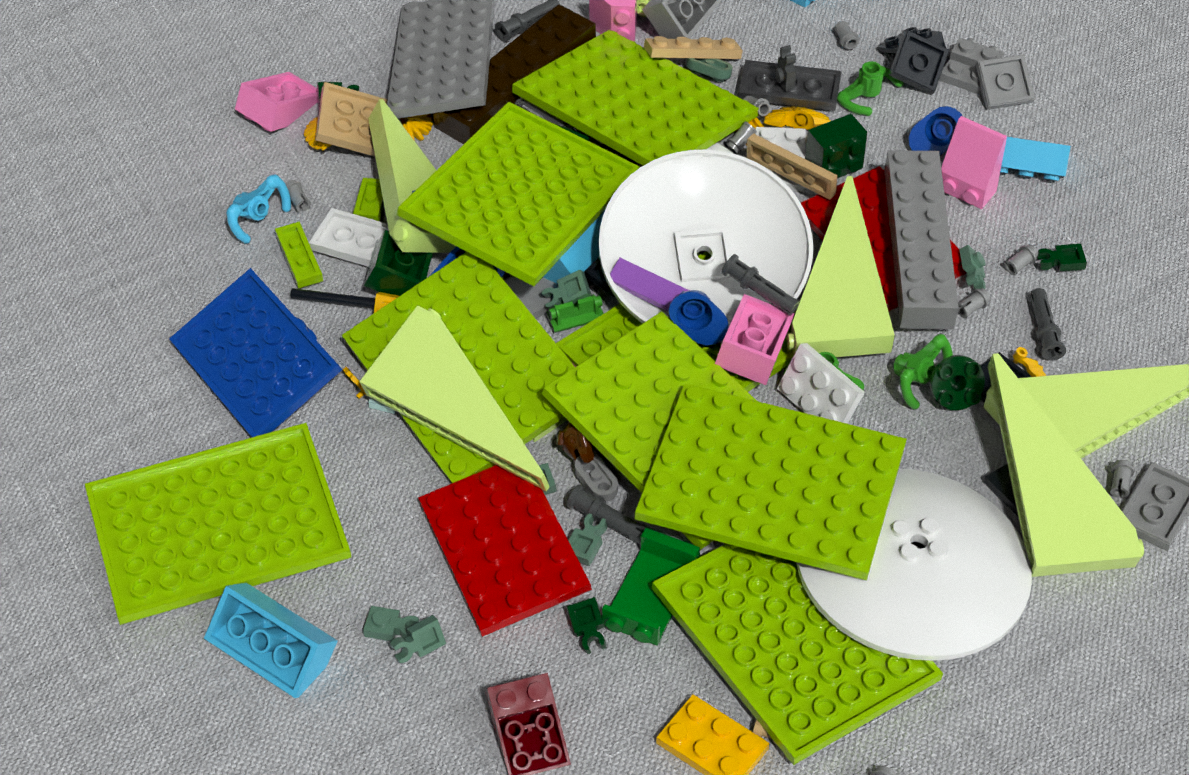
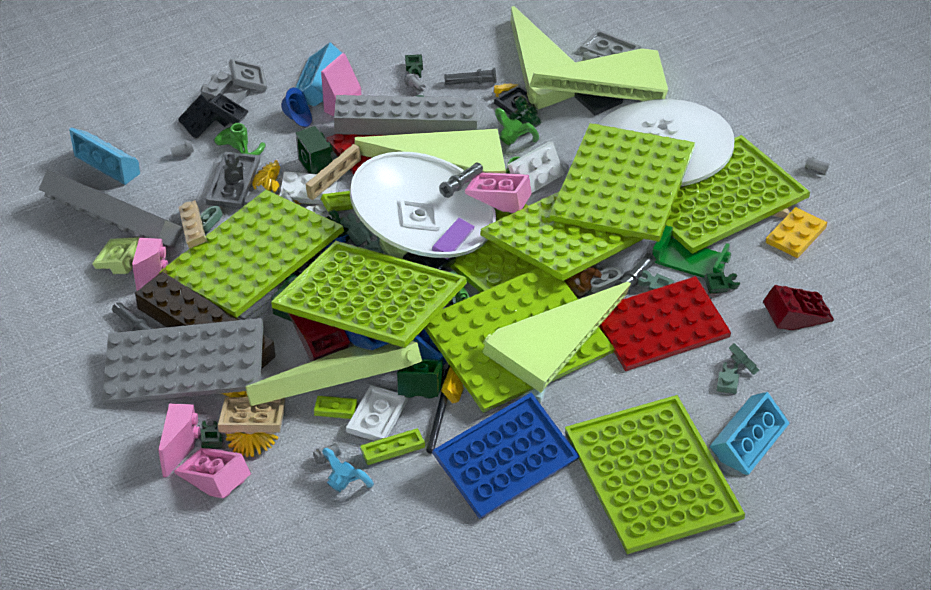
camera: 90 degrees left, 5 degrees down
(321, 56) = (178, 436): none -> bright pink slope
(698, 317) = (484, 210): blue piece -> none

